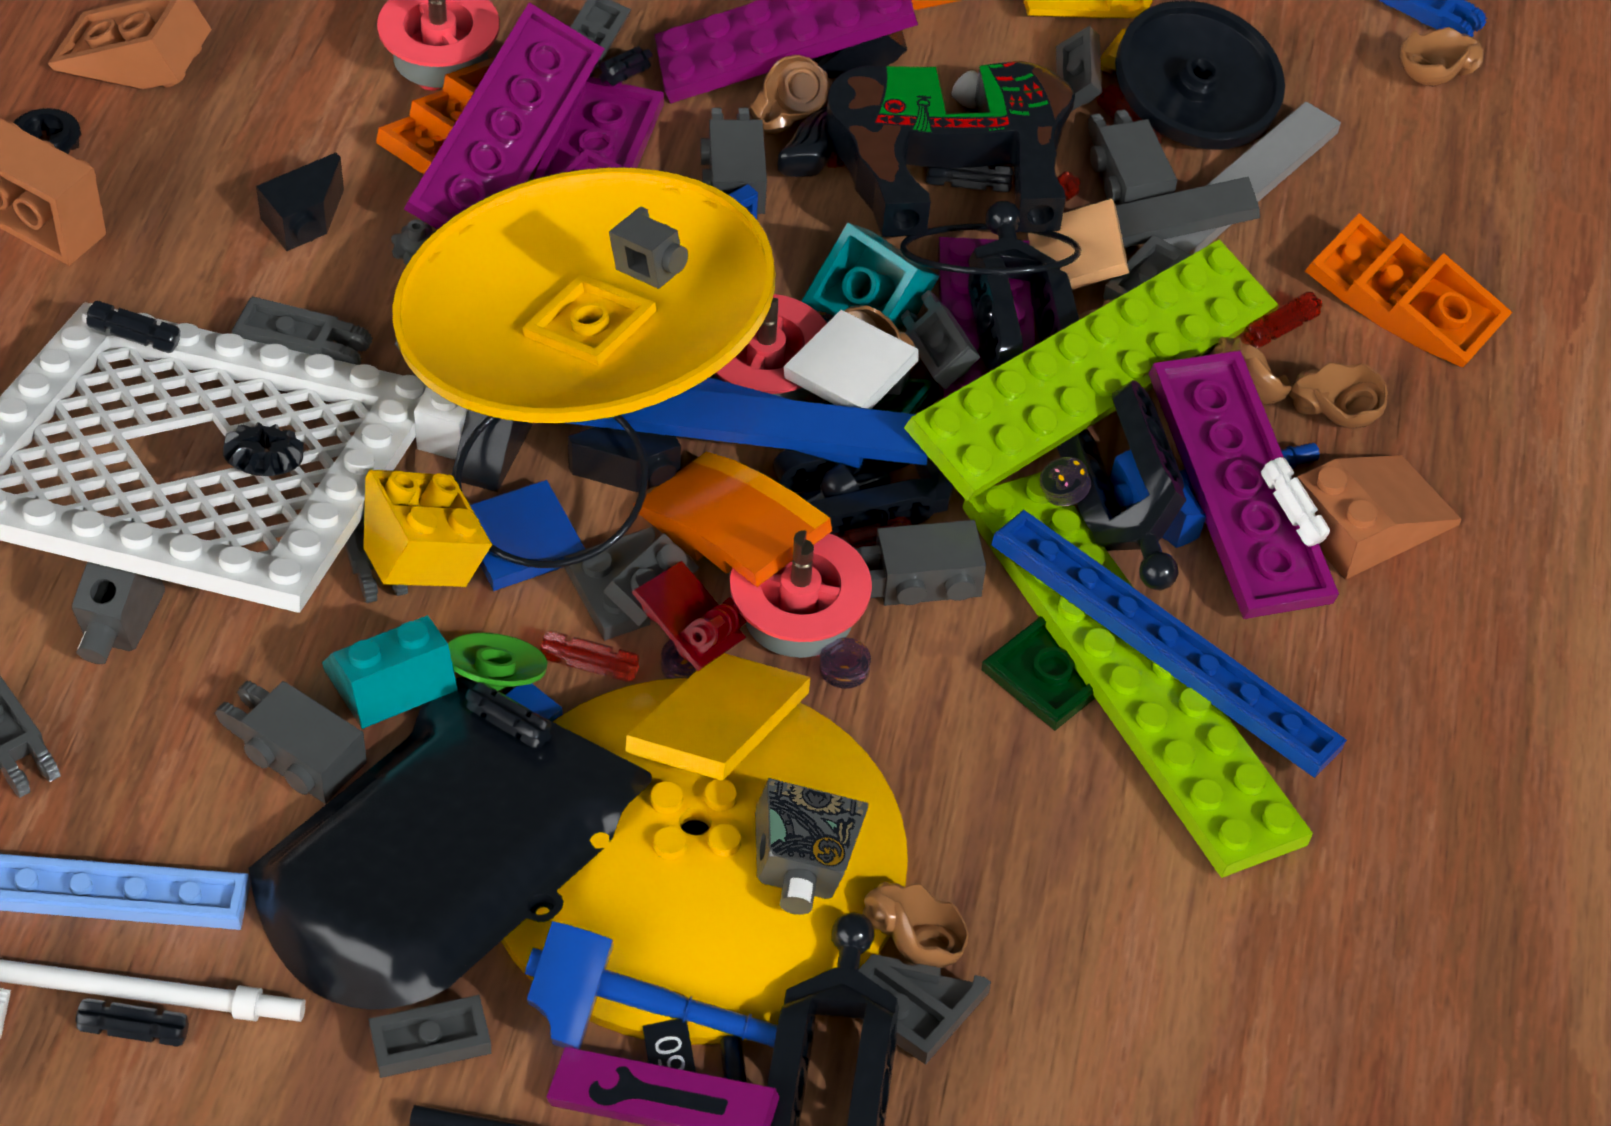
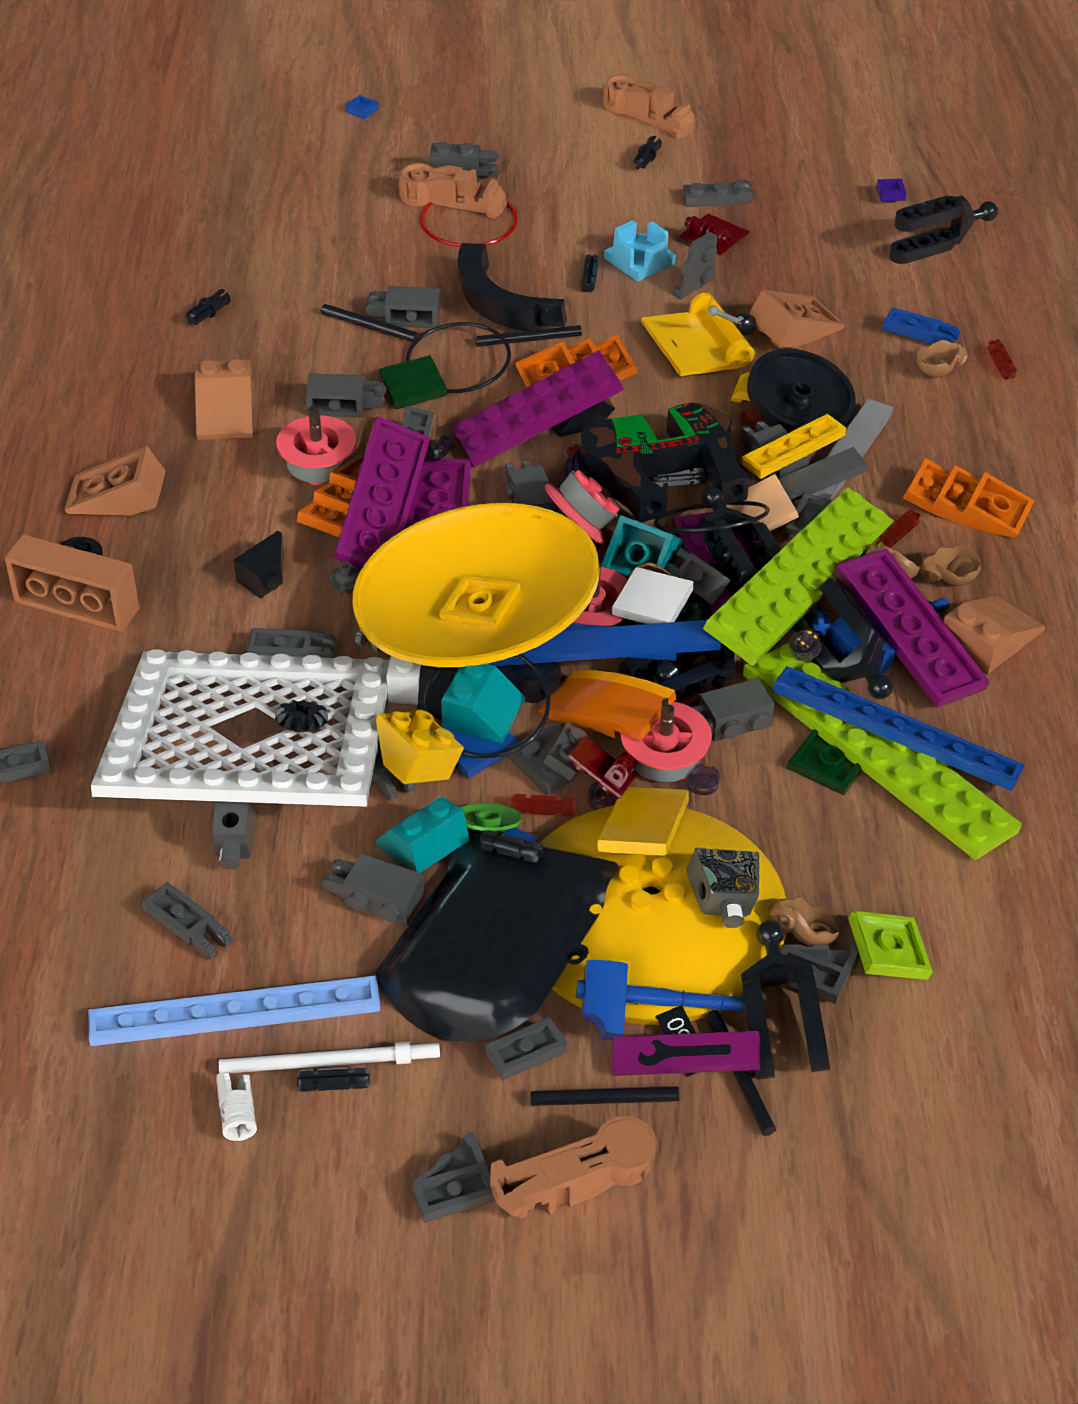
camera: 10 degrees left, 5 degrees down
(133, 326) = (186, 658): black axle -> none
(544, 479) = (481, 703): none -> teal slope
(647, 249) = (512, 548): dark grey brick -> none
(790, 93) = (553, 445): medium nougat hair -> none
(798, 197) = (584, 504): none -> piece
(965, 89) = (659, 426): white hinge -> none
(1038, 989) = (890, 945): none -> lime tile
(1080, 65) = (724, 397): dark grey plate -> none
(1106, 445) = (820, 620): none -> blue axle
(1155, 159) = (793, 446): none -> yellow tile
(1295, 501) = (948, 631): white axle -> none
(1539, 74) = (1002, 359): none -> clear red axle

